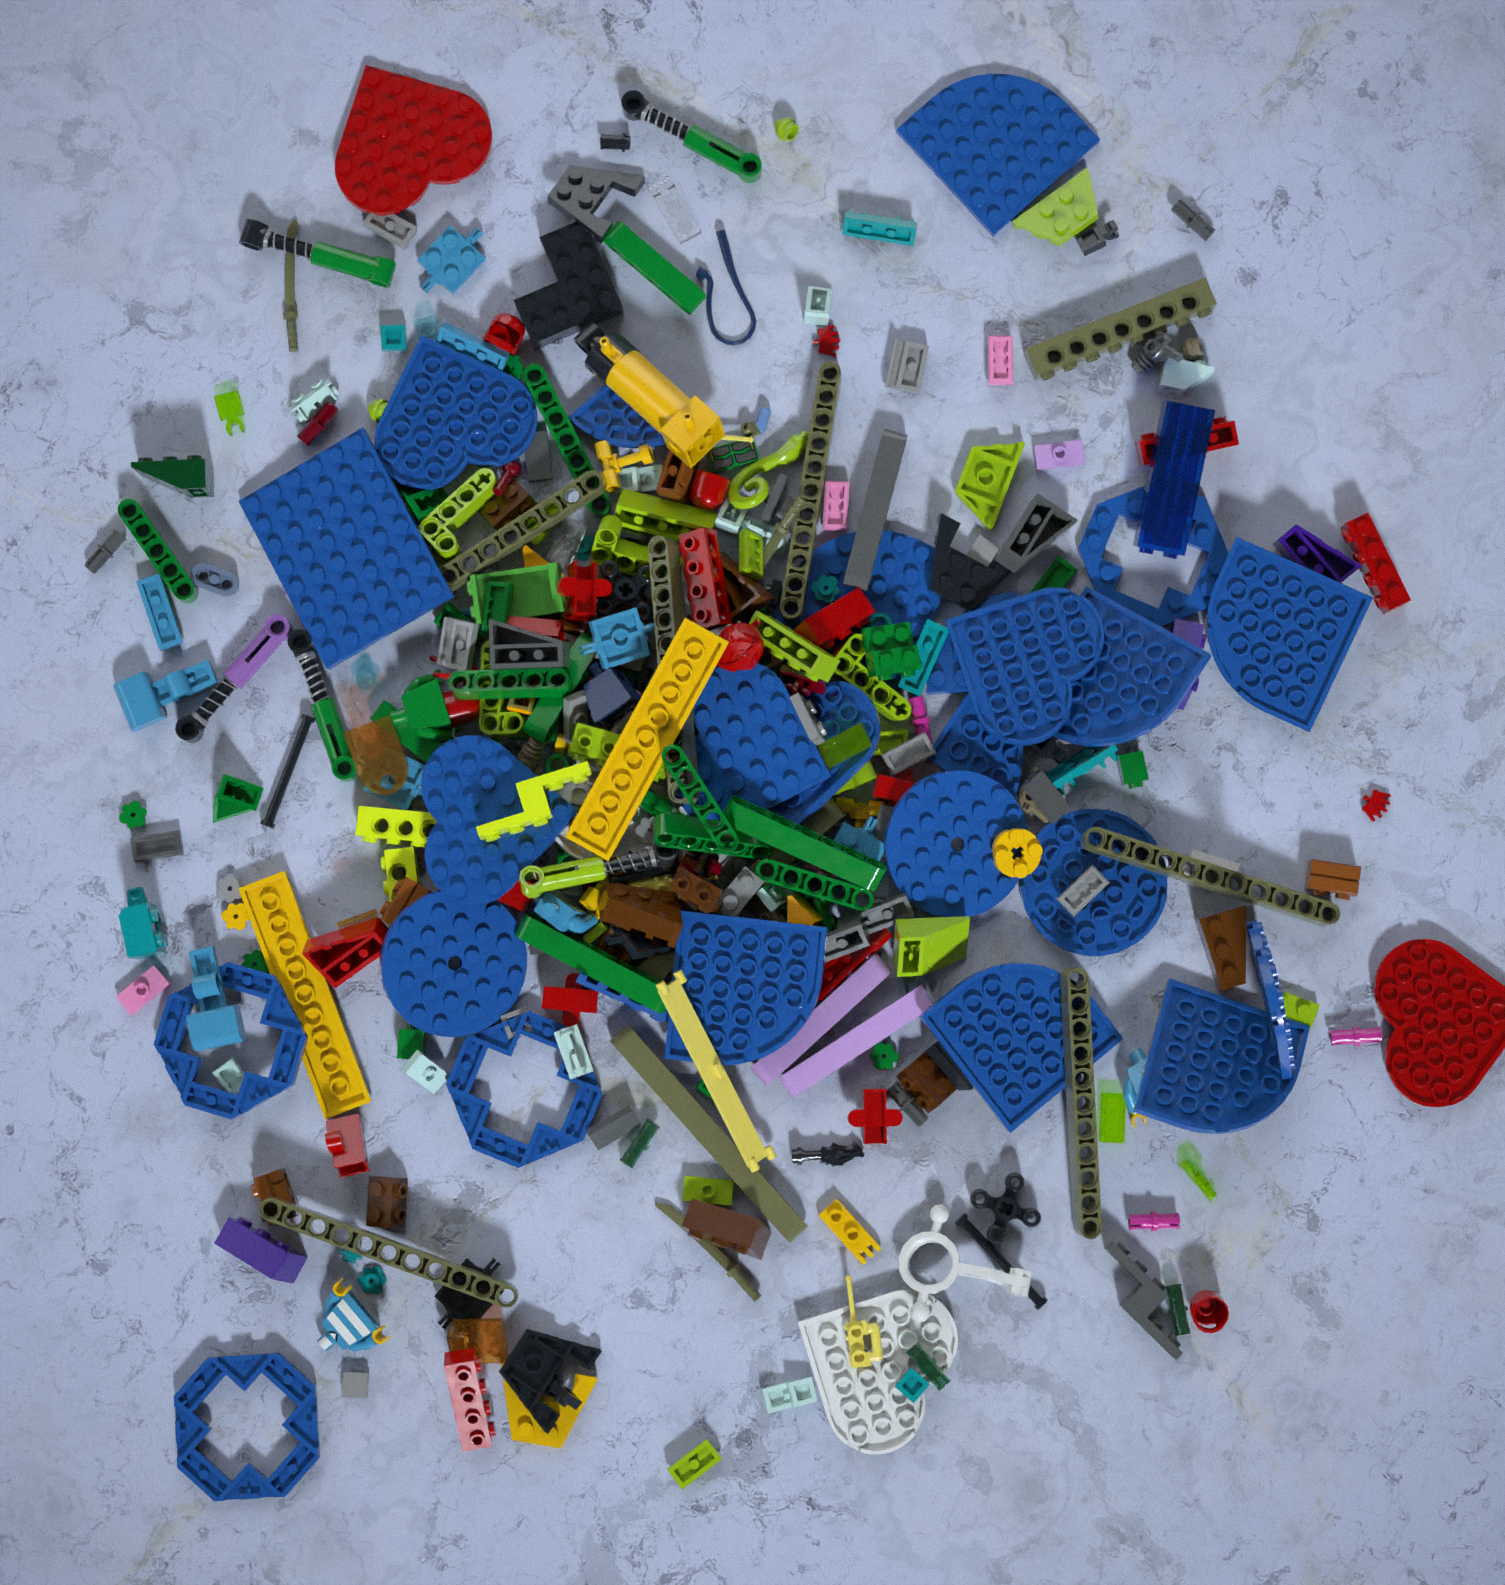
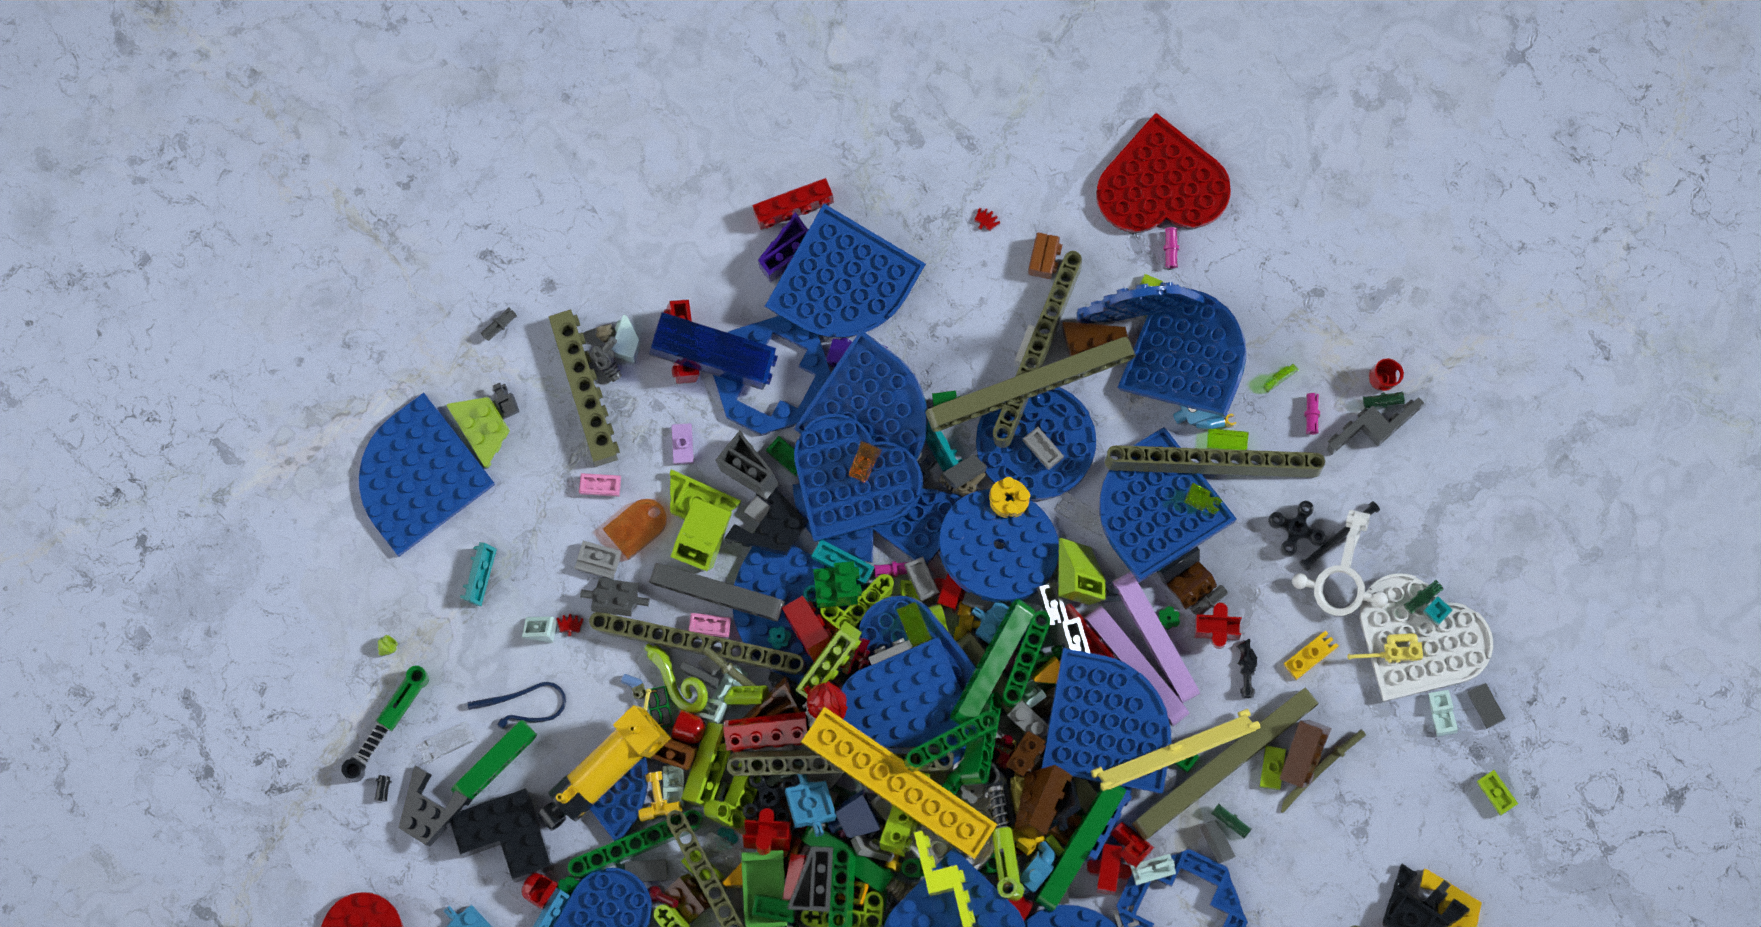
camera: 80 degrees left, 10 degrees down
(600, 1031) = (1136, 847): none -> red plate
(801, 1448) = (1486, 705): none -> dark grey tile
(861, 390) = (615, 597): none -> dark grey plate
(943, 485) = (701, 535): none -> lime slope
(950, 407) = (635, 528): none -> clear orange tile
(1031, 1085) = (1199, 498): none -> clear neon green plate
(1045, 671) = (864, 461): none -> clear orange leg
(1159, 869) = (1030, 384): none -> olive beam

